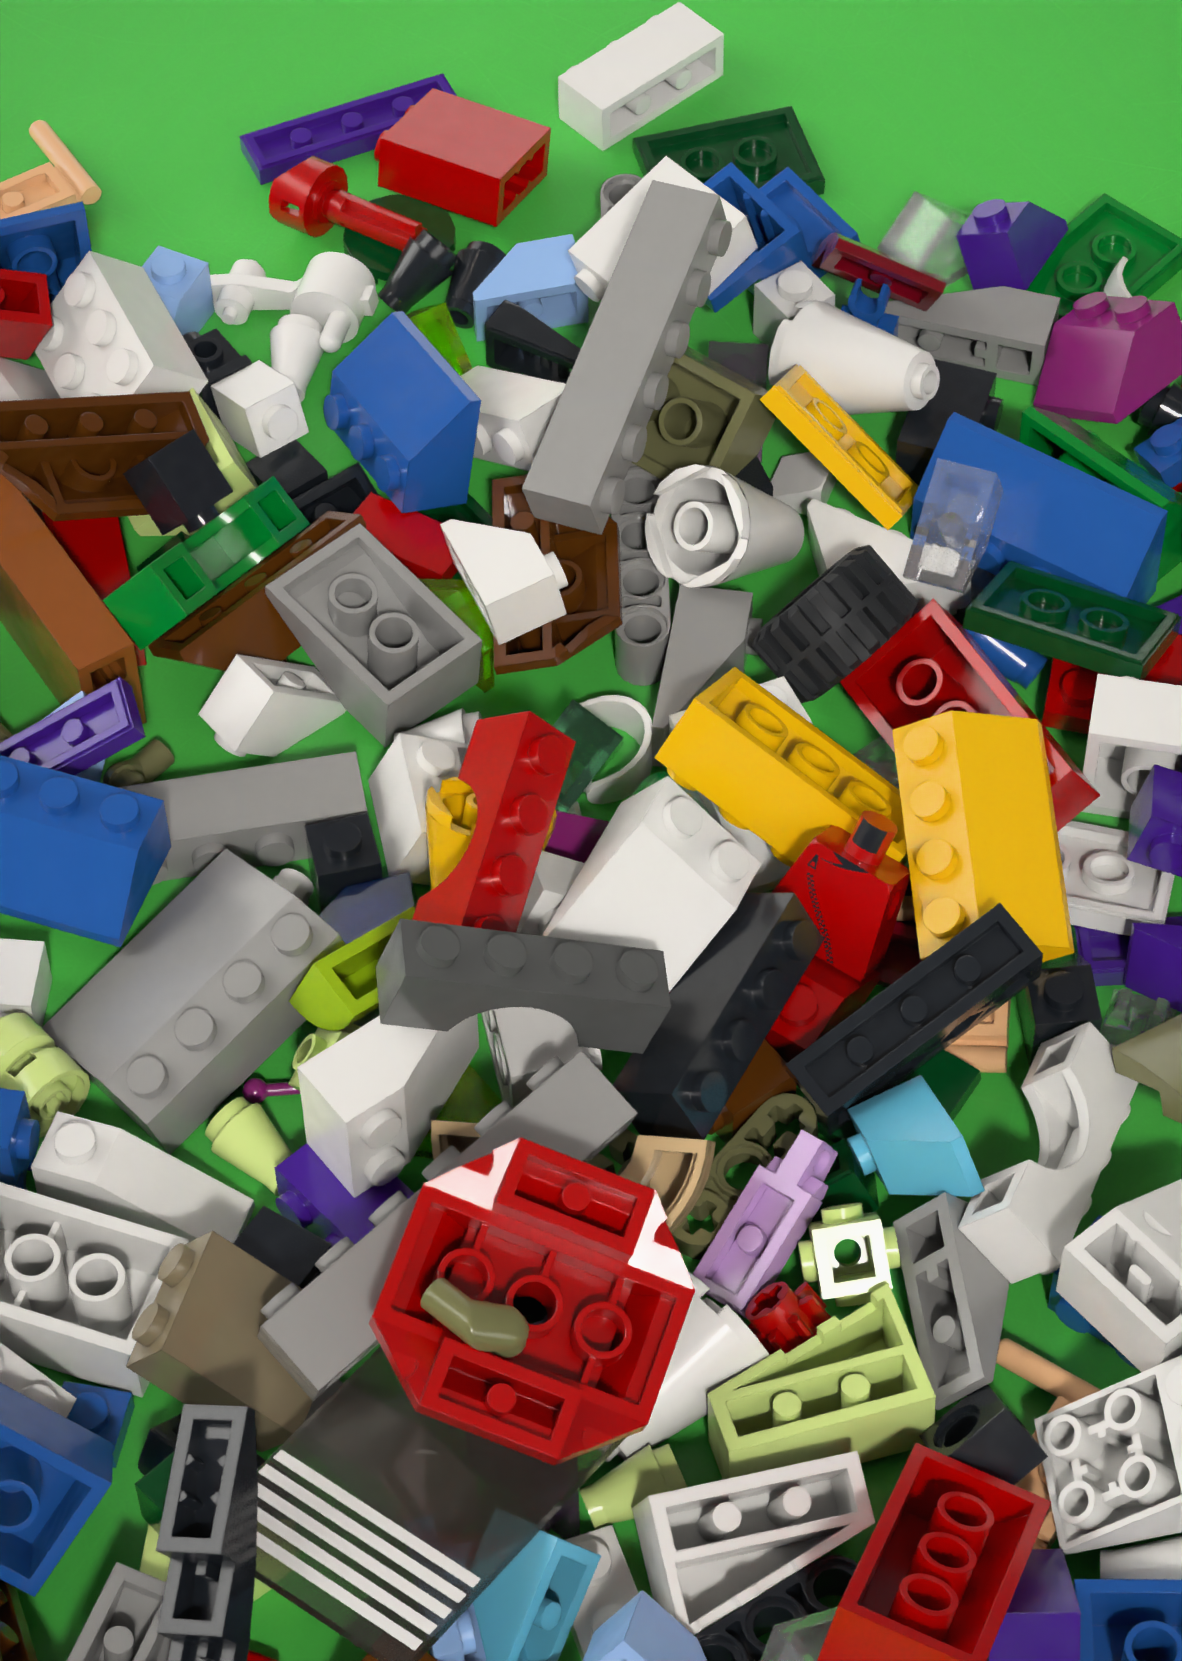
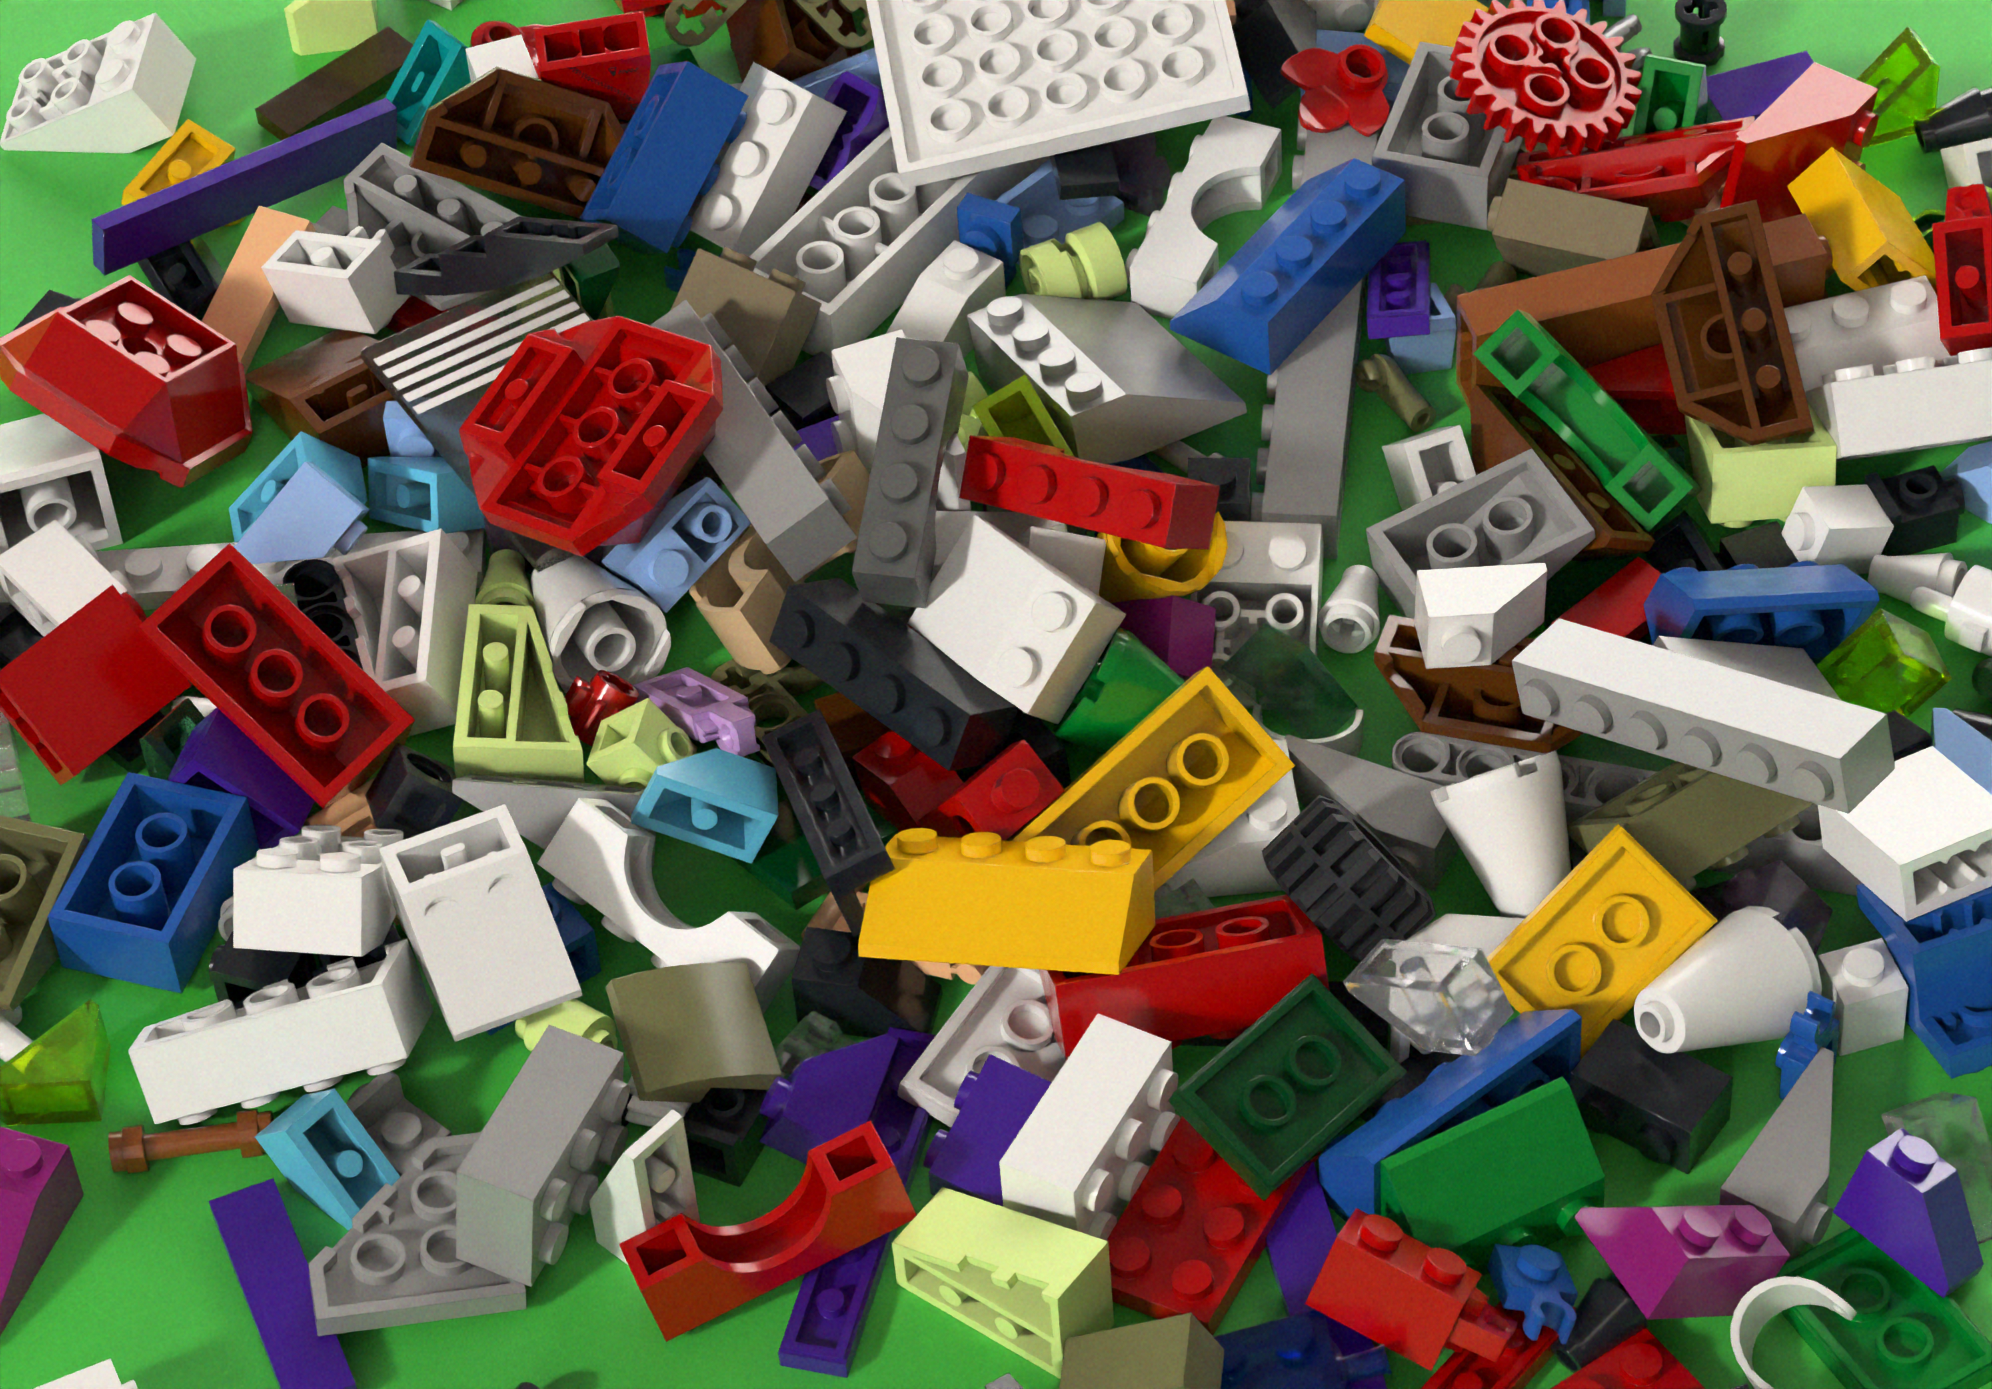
camera: 110 degrees right, 5 degrees down
(179, 485) = (1676, 395): black brick -> none
(478, 1323) = (574, 370): olive arm -> none
(855, 260) = (1857, 1037): dark red slope -> none

